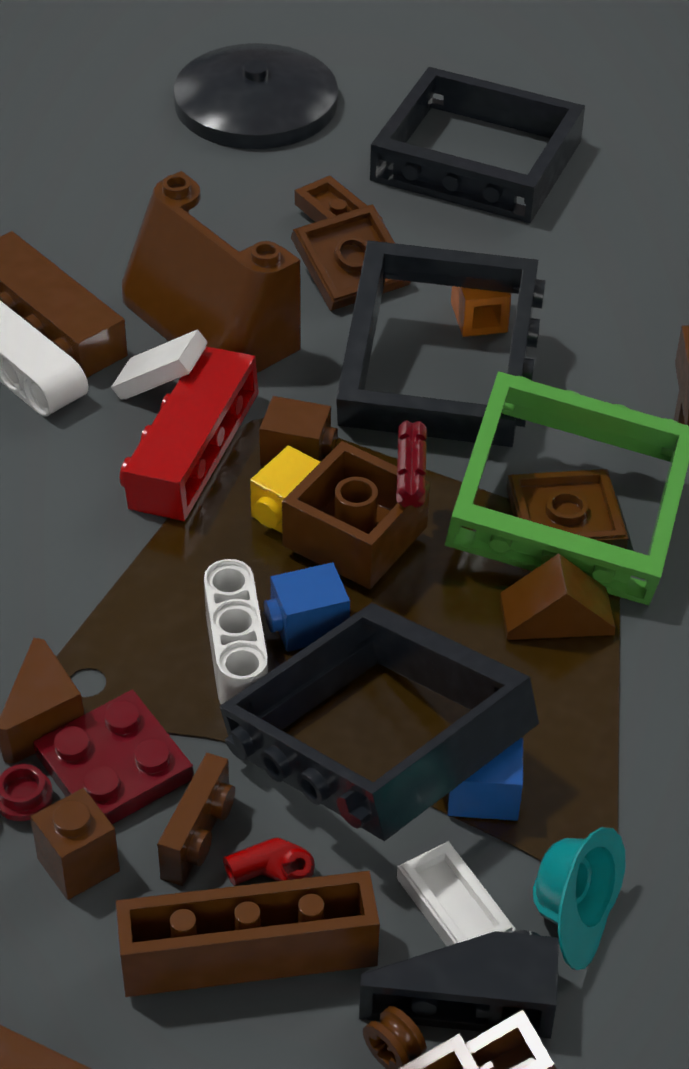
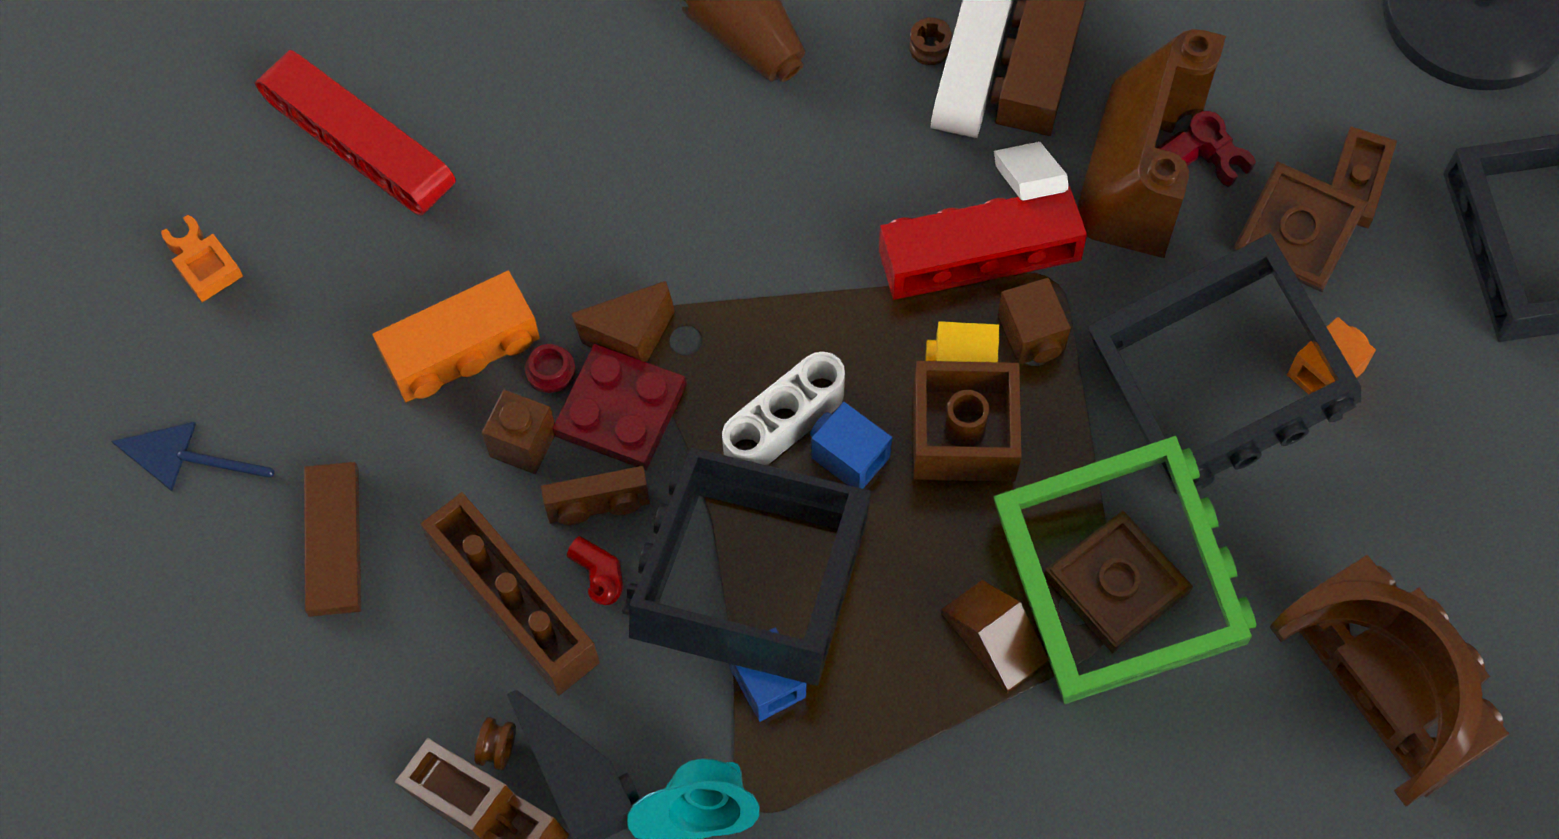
camera: 60 degrees right, 20 degrees up
(411, 464) = (1021, 431): dark red axle -> none
(451, 896) = (648, 719): white tile -> none

